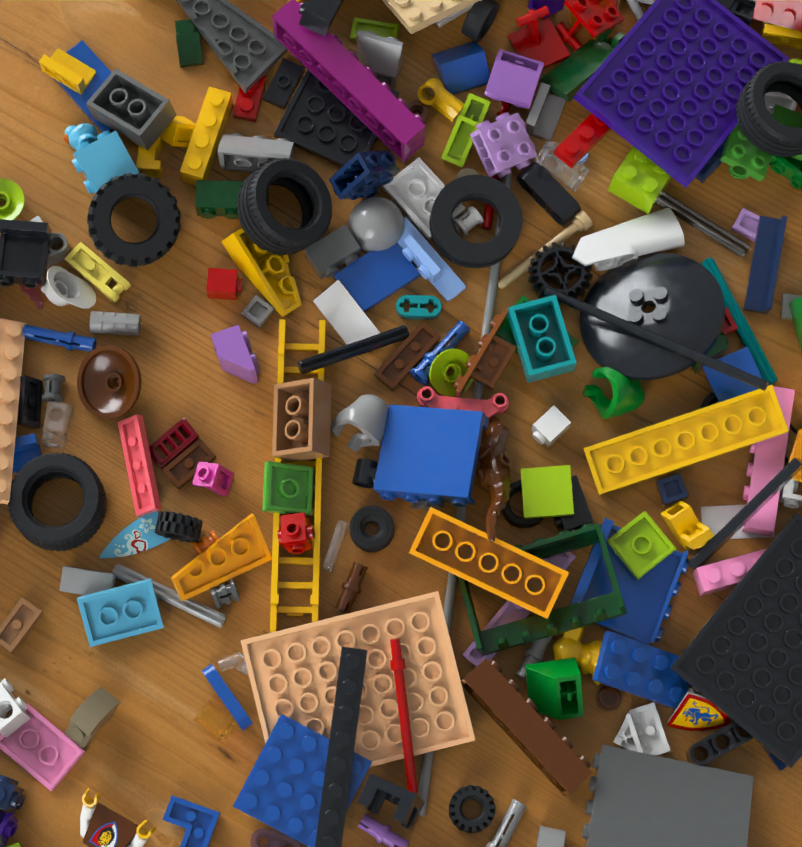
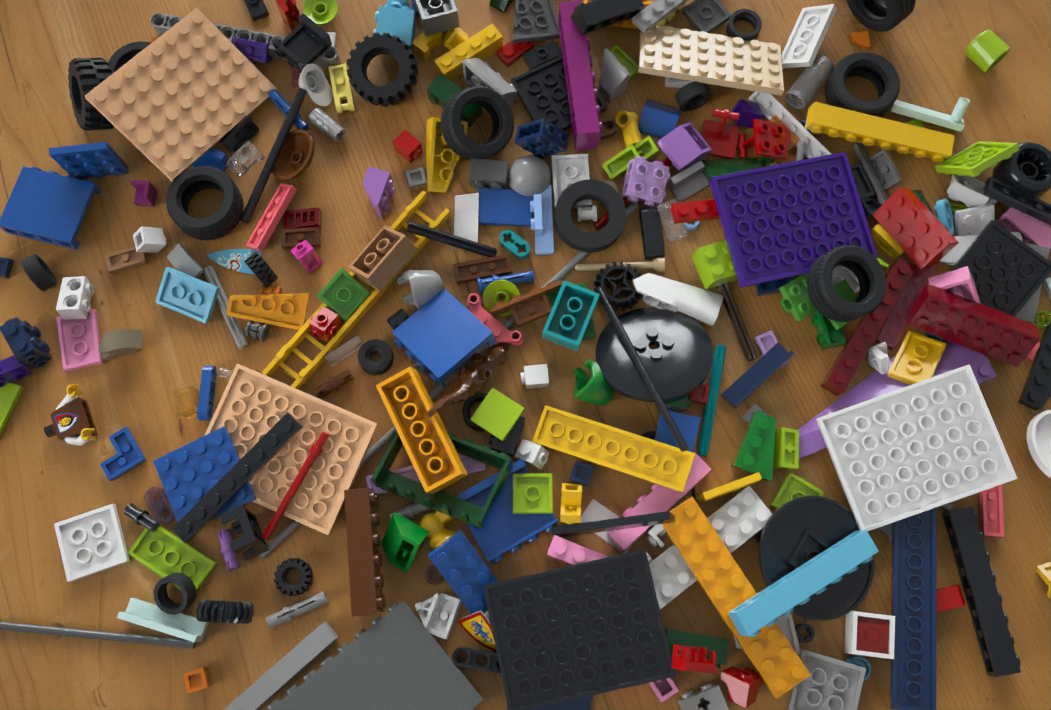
camera: 40 degrees right, 0 degrees up
(29, 585) = (149, 239): none -> white brick
(53, 388) = (260, 137): dark grey bush -> none
(87, 397) = (273, 155): none -> black piece
(608, 506) = (532, 454): none -> white bracket

